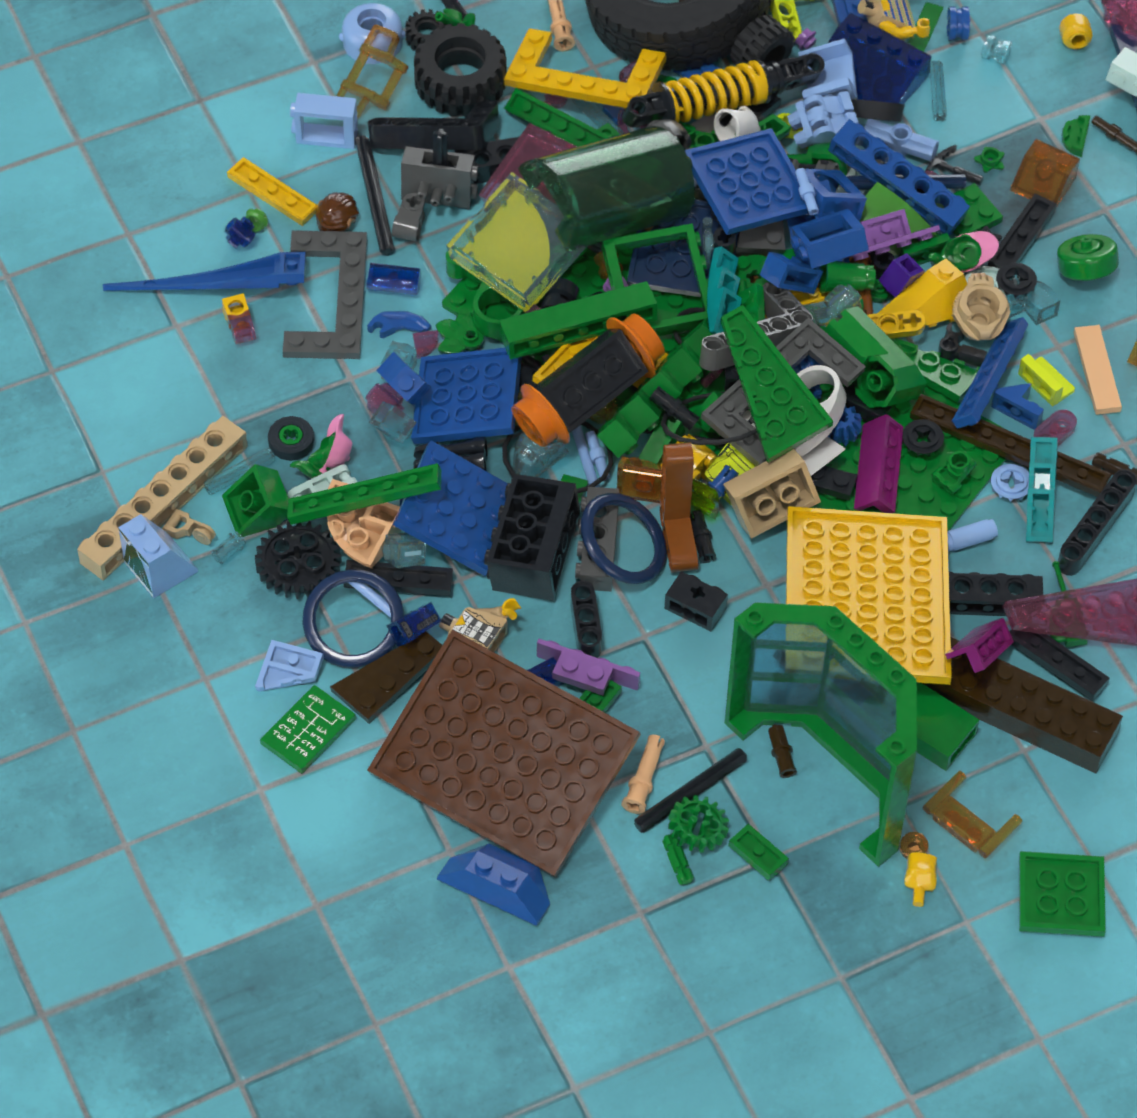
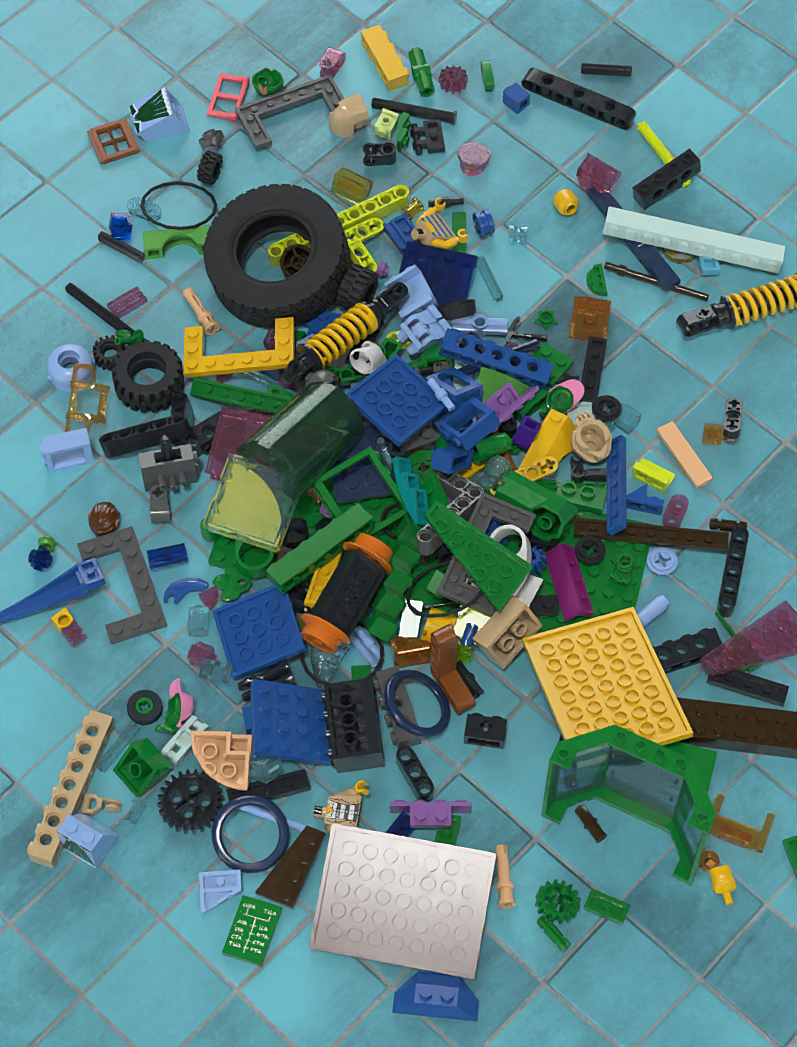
camera: 20 degrees left, 5 degrees up
(272, 191) = (49, 516): yellow tile -> none
(364, 494) = (223, 738): green plate -> none
(374, 195) = (125, 494): black axle -> none
(403, 379) = (209, 634): blue slope -> none
(414, 624) = (297, 823): clear blue leg -> none
(674, 408) = (412, 591): black pin -> none
(691, 788) = (540, 876): black axle -> none
(983, 644) = (699, 696): magenta panel -> none
(1042, 489) = (687, 561): teal slope -> none
(1087, 257) = (645, 373): green wheel -> none

